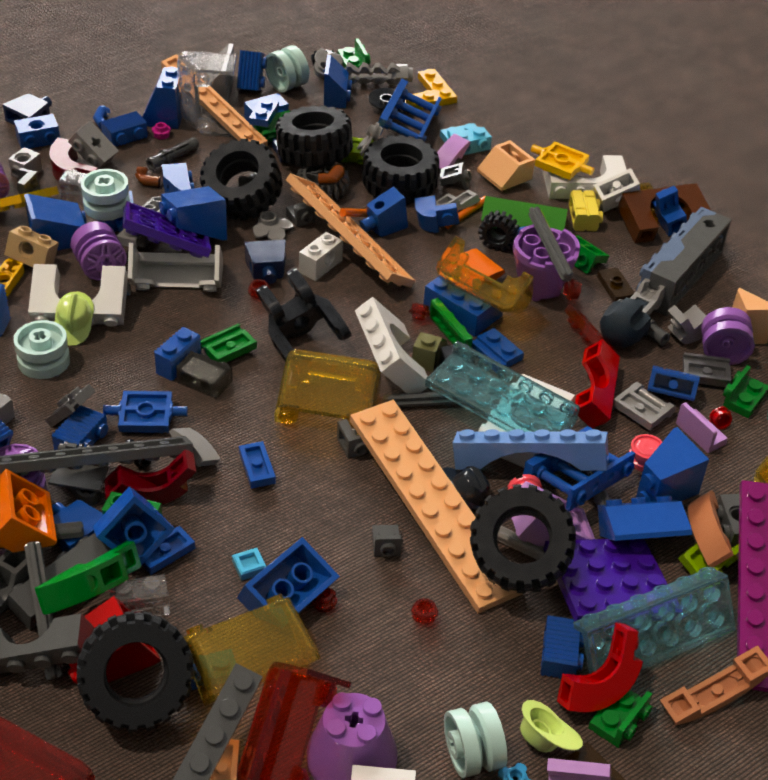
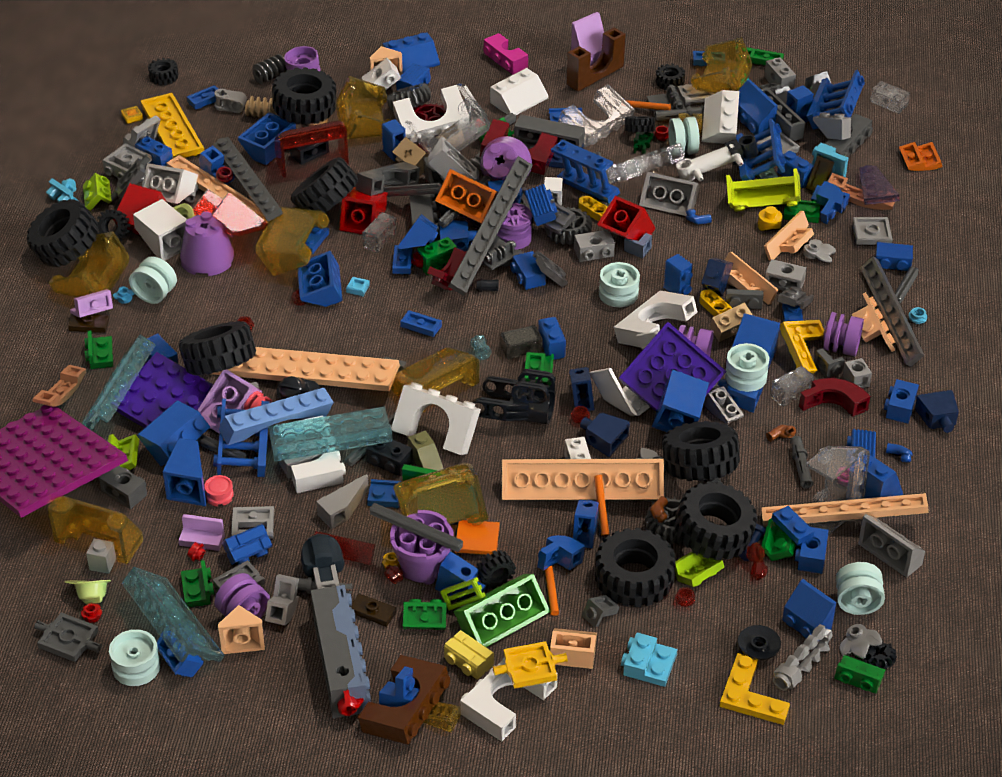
camera: 135 degrees right, 0 degrees up
(75, 315) = (635, 304): yellowish green piece -> none
(88, 579) = (397, 204): green slope -> none
(93, 145) = (838, 408): light grey brick -> none
(145, 411) = (517, 304): blue plate -> none
(176, 177) = (754, 439): slope -> none
(203, 451) = (463, 305): light grey slope -> none
(231, 292) = (581, 383): none -> dark blue torso
(246, 395) = (482, 351): none -> clear light blue bush
(251, 70) = (884, 558): blue brick -> none
(372, 134) = (684, 558): light grey plate -> none
(386, 540) = (305, 341): dark grey bracket -> none
(396, 103) = (720, 611): blue fence -> none
(451, 150) = (630, 622): lavender slope -> none
(463, 200) = (565, 585): light grey slope -> none
(546, 730) = (124, 311): yellowish green piece -> none
(548, 362) = (341, 504): none -> light grey slope
(559, 302) = (390, 559): none -> yellow plate
(602, 368) = (280, 491): red arch -> none
(607, 683) = (120, 342): red arch -> none
(611, 189) = (457, 676): white brick -> none
(708, 531) = (151, 472): nougat slope -> none

